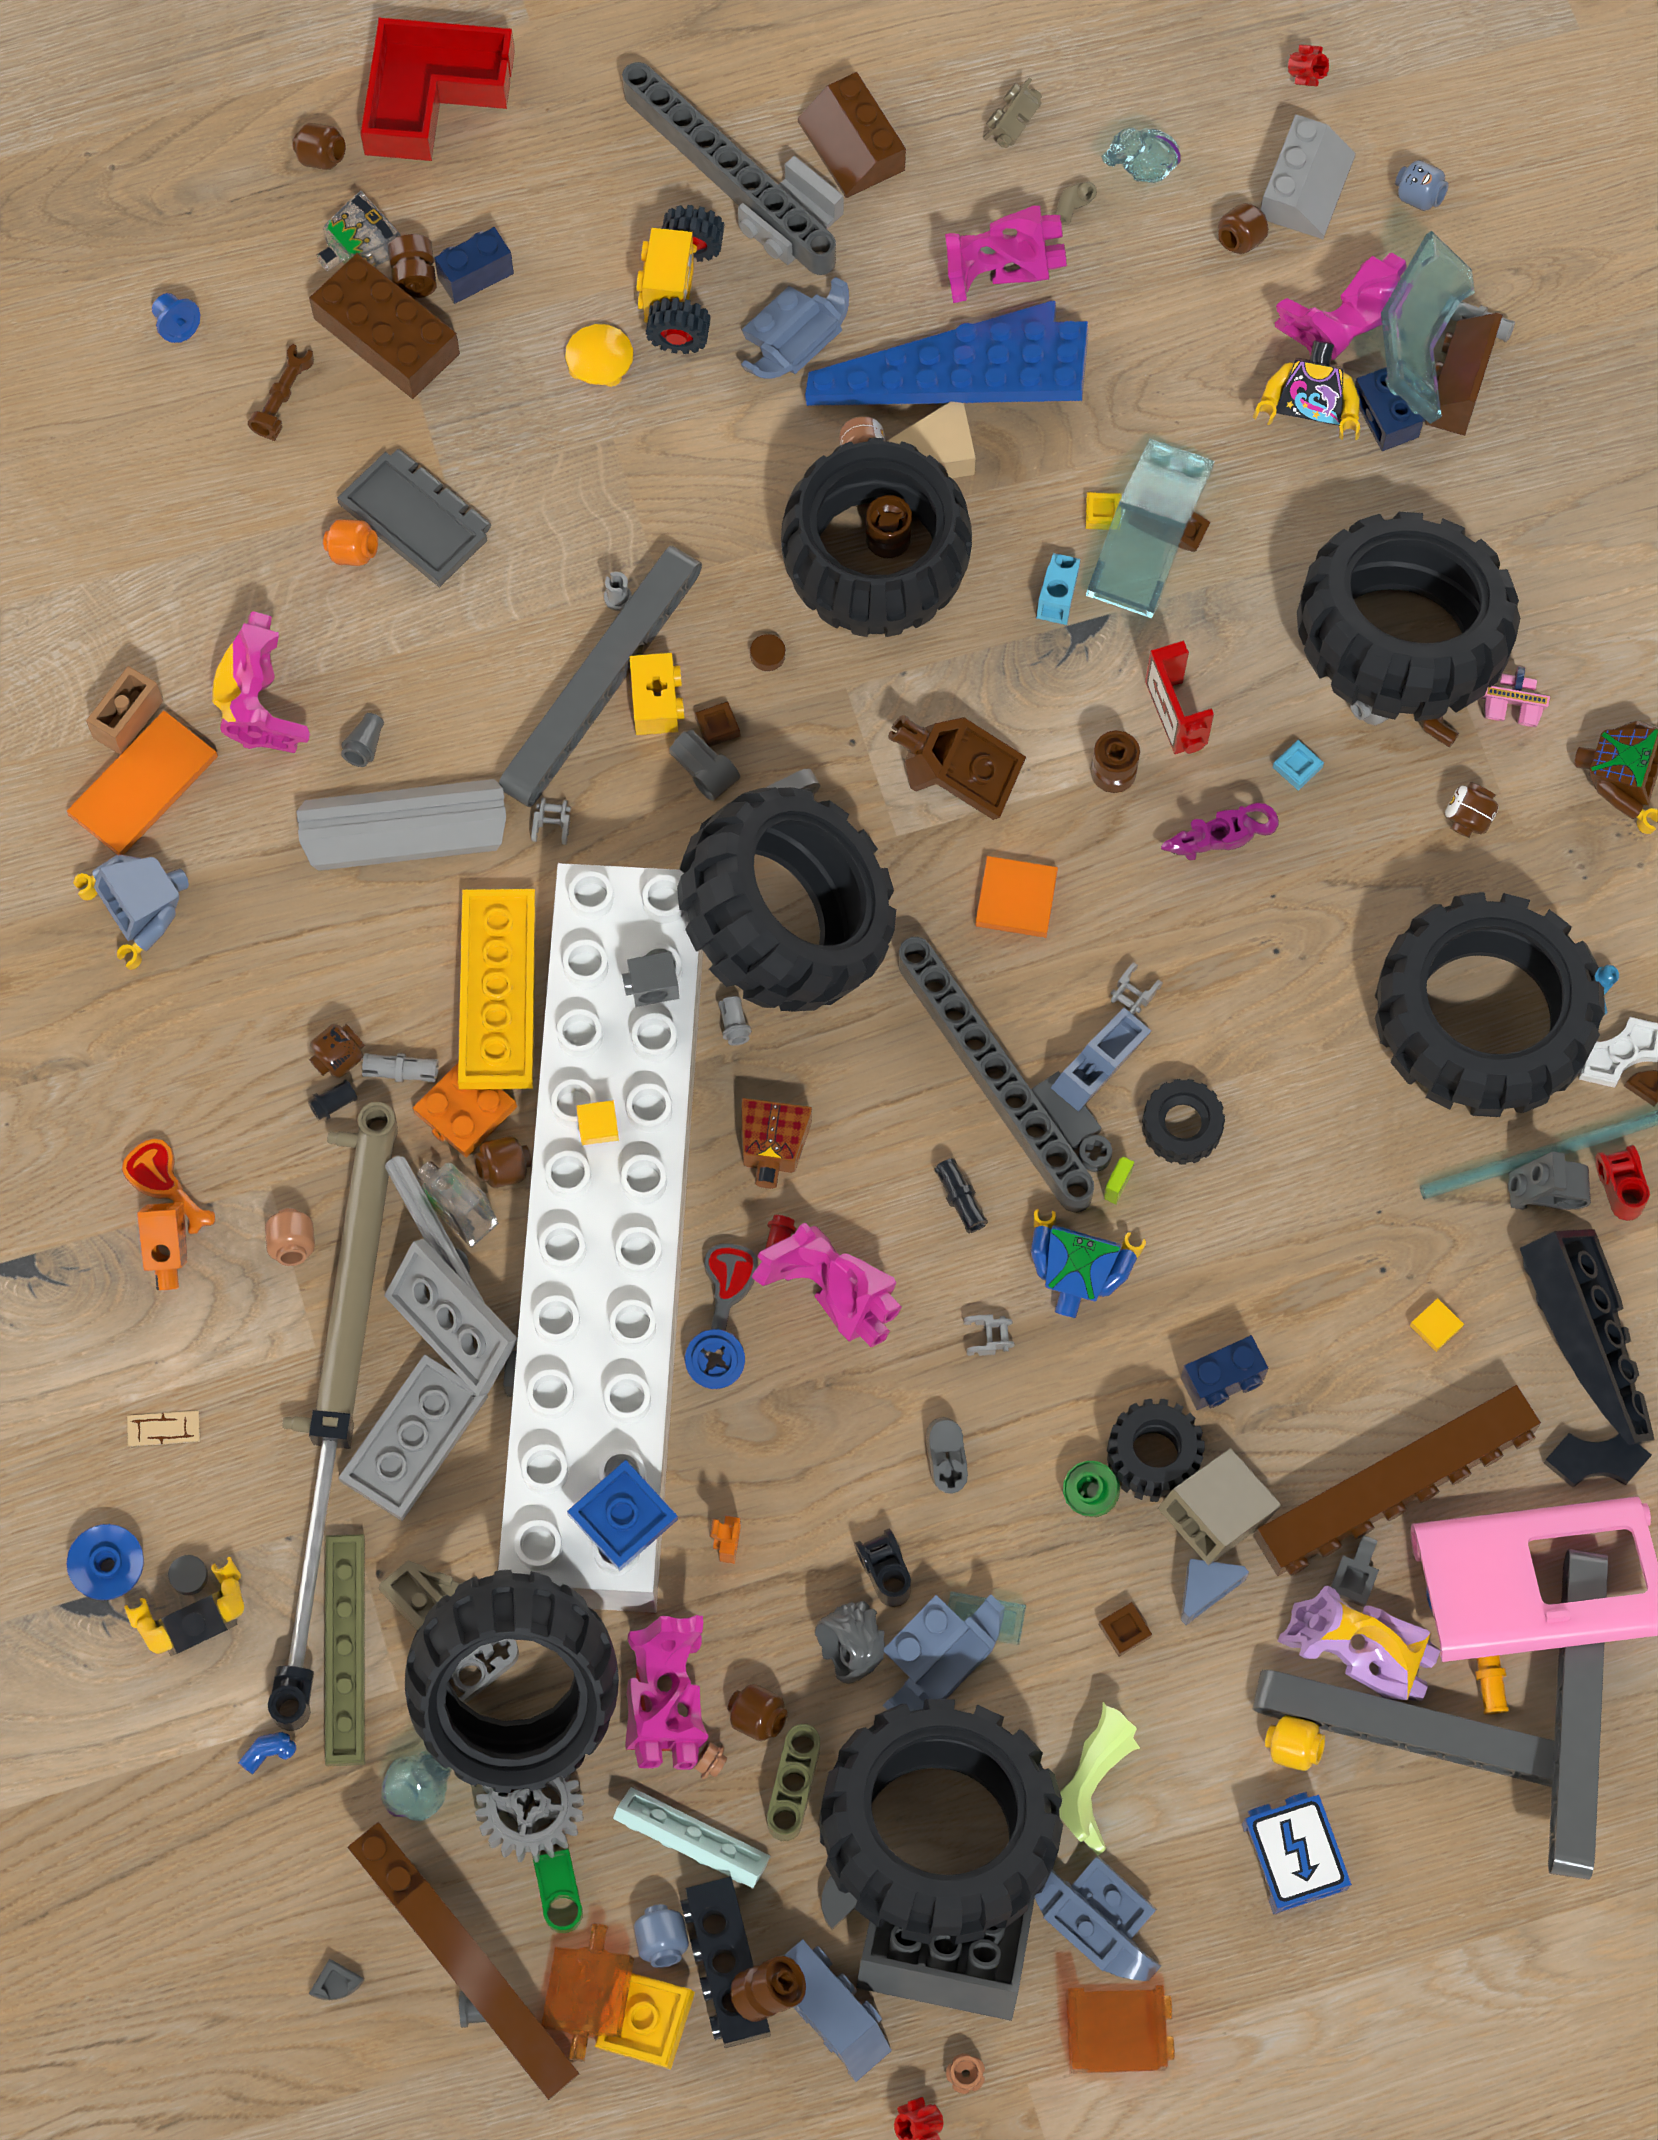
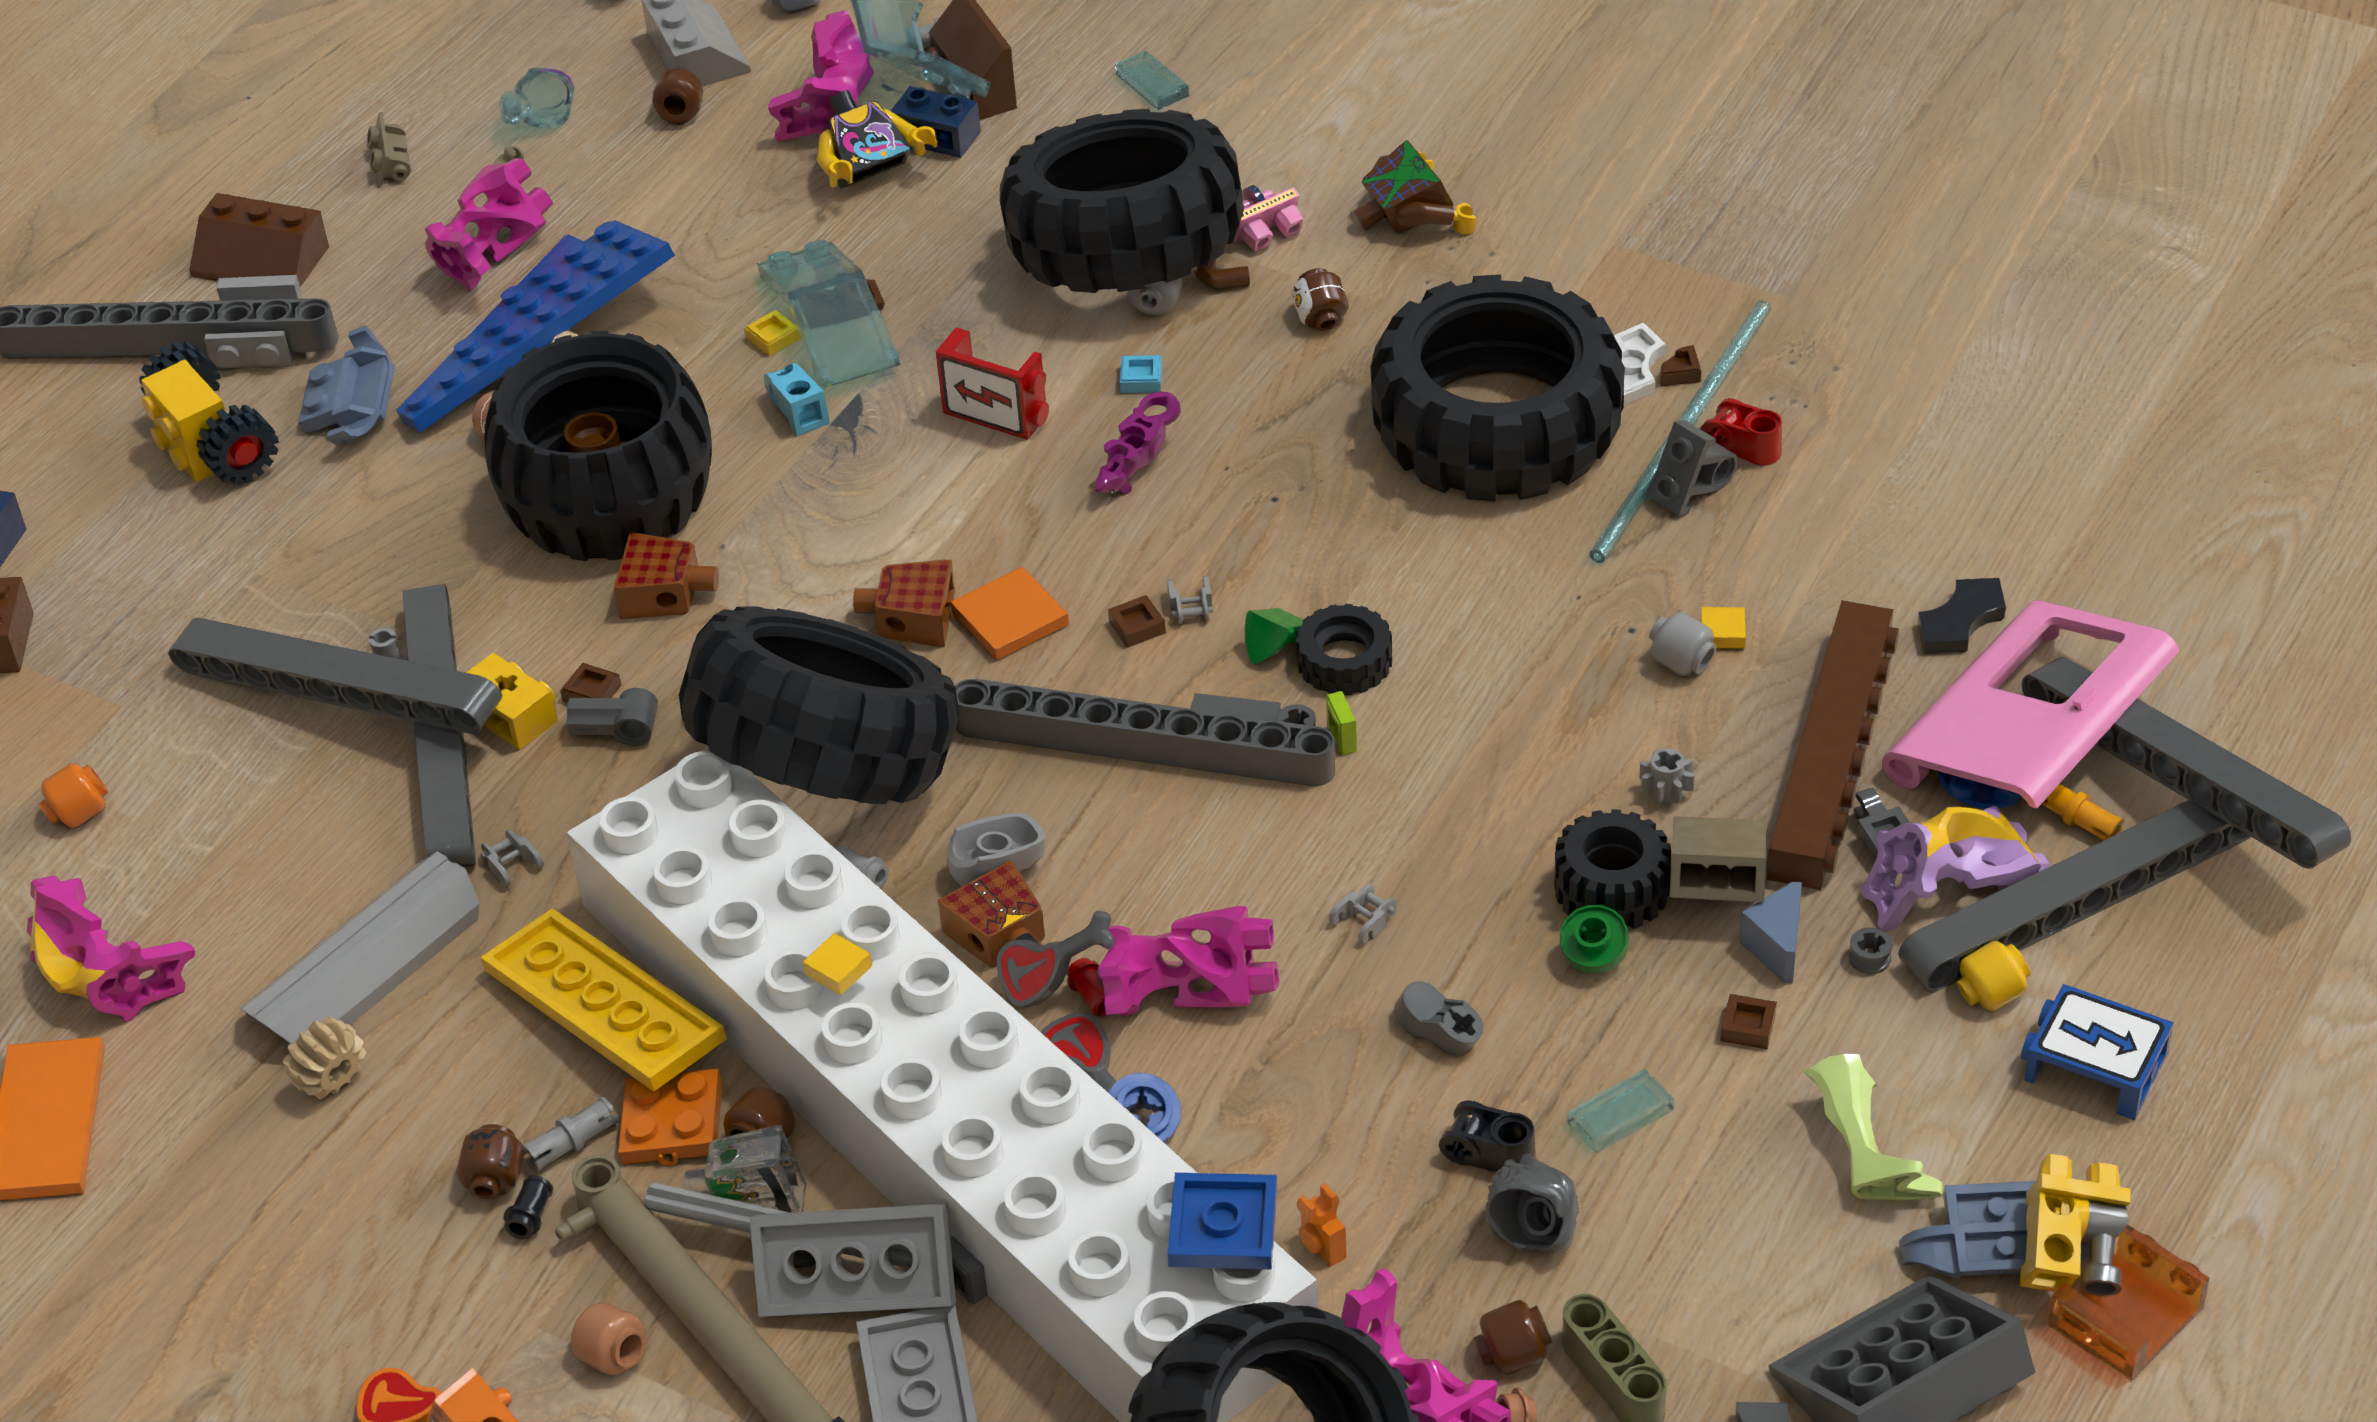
camera: 40 degrees left, 25 degrees down
(138, 898) = (138, 1193): sand blue torso -> none
(311, 889) = (324, 1057): none -> tan gear
(362, 742) = (250, 927): dark grey cone -> none
(414, 518) = (120, 744): dark grey hinge -> none
(565, 588) = (336, 675): none -> dark grey beam
(599, 355) = (178, 524): yellow dish -> none
(651, 979) = (767, 821): dark grey brick -> none
(751, 1203) = (1036, 971): none -> dark grey piece
(767, 652) = (579, 611): reddish brown tile -> none
(818, 1084) = (993, 841): none -> light grey piece
(833, 672) = (660, 577): none -> dark orange torso
(925, 1901) = (1796, 1322): black tyre -> none
(942, 1650) = (1617, 1153): sand blue plate -> none
(960, 1195) = (1217, 835): black pin -> none
(961, 761) = (838, 545): reddish brown plate -> none
(962, 835) = (911, 601): none -> dark orange torso
(1079, 1263) = (1379, 797): blue torso -> none
(1086, 976) = (1136, 621): none -> reddish brown tile
(1100, 1059) = (1222, 659): sand blue slope -> none
(1115, 761) = (987, 463): reddish brown wheel -> none
(1130, 1951) = (2071, 1212): none -> yellow hips
(1154, 1066) = (1269, 632): none -> green tile
(1224, 1373) = (1600, 773): dark blue brick -> none
(1255, 1662) = (1870, 962): none -> dark grey bush
(1264, 1420) = (1667, 776): none -> light grey gear
(1389, 1318) = (1682, 644): none -> light grey head
(1578, 493) = (1152, 80): none -> clear light blue tile
(1582, 1311) = (1833, 532): black wedge -> none

